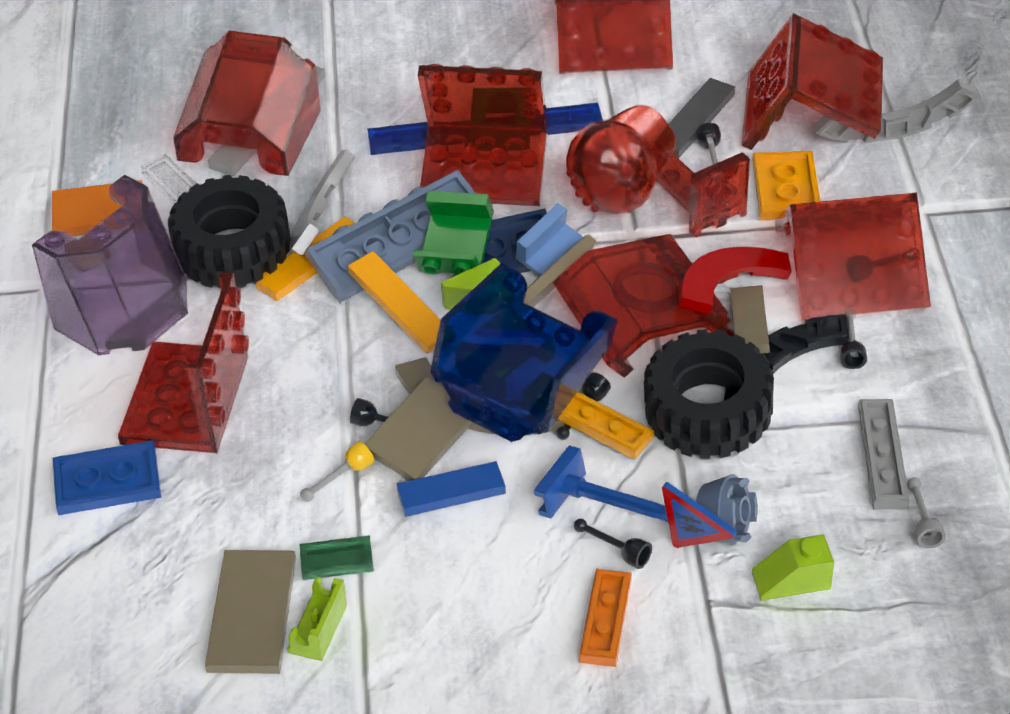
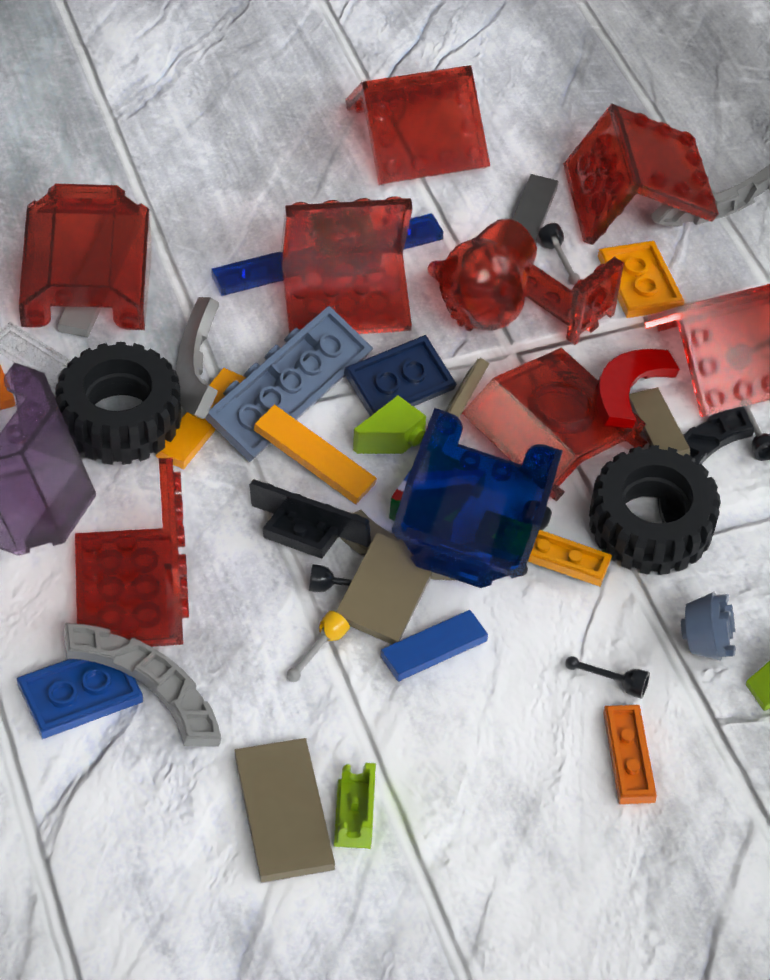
camera: 20 degrees left, 5 degrees up
(175, 468) = (153, 670): none -> light grey tile
(336, 557) = (347, 737): clear green tile -> none
(366, 360) = (306, 522): none -> black bracket
(455, 232) = (349, 374): green panel -> none
(546, 241) = (443, 372): medium blue panel -> none
(687, 519) = (681, 642): blue piece -> none

